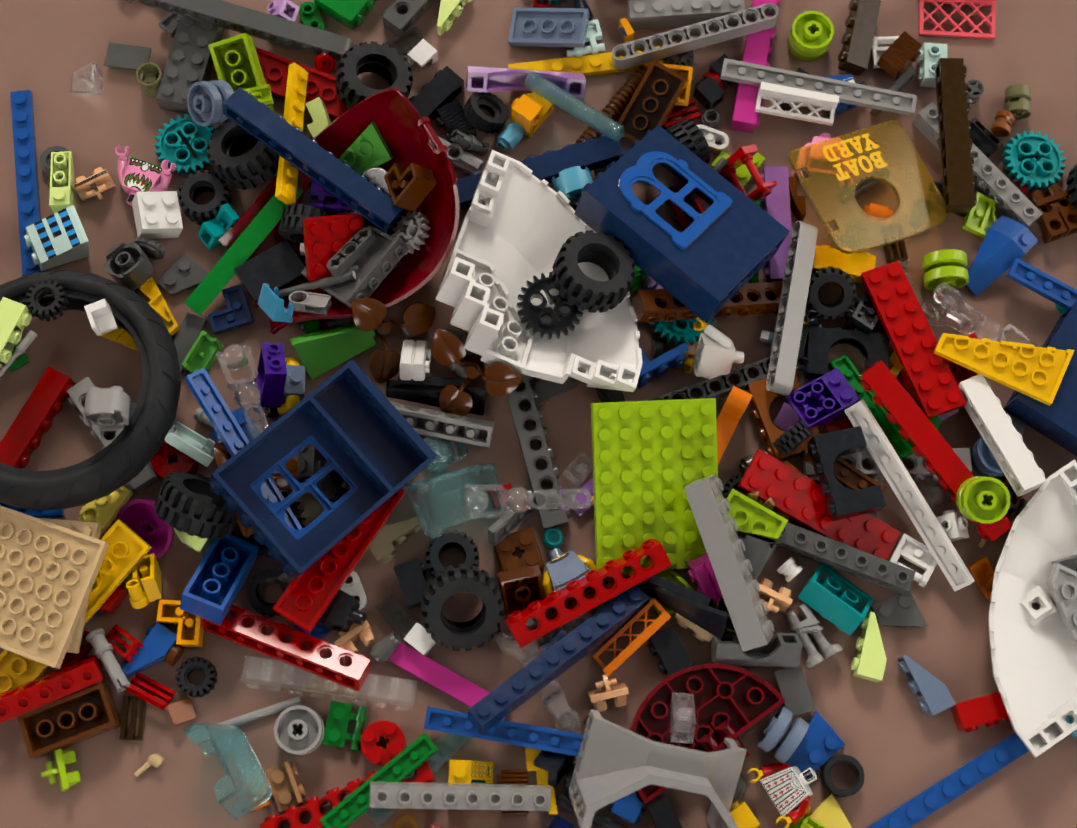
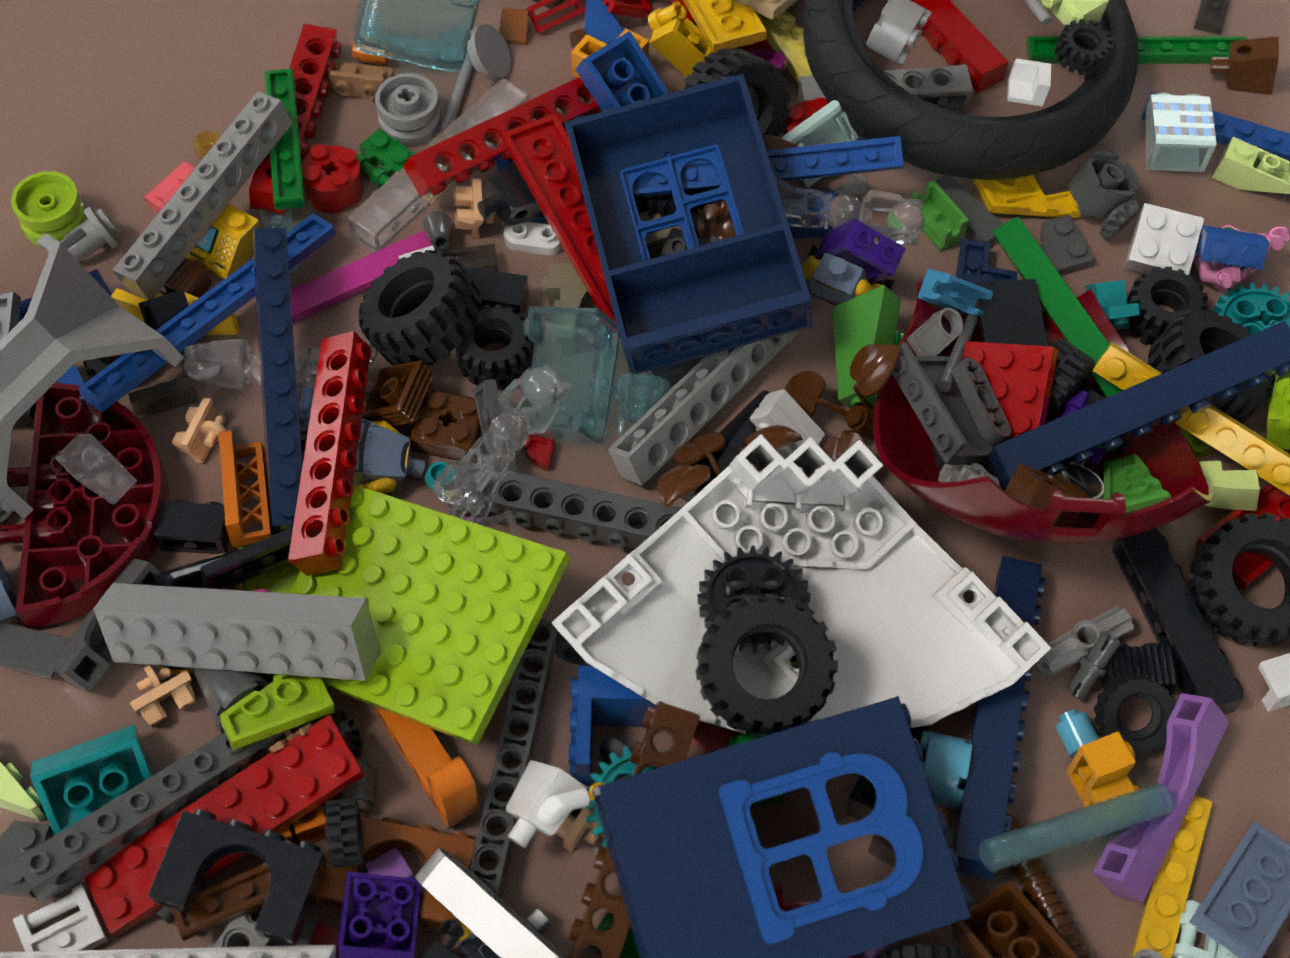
camera: 125 degrees right, 15 degrees down
(93, 185) = (1245, 205): light nougat hips -> none
(150, 169) = (1232, 247): none -> blue brick
(183, 677) = (537, 42): black tyre -> none
(220, 706) = (489, 52): none -> light grey tile
(790, 569) = (178, 741): white wheel -> none
(811, 625) = (83, 724): light grey piece -> none

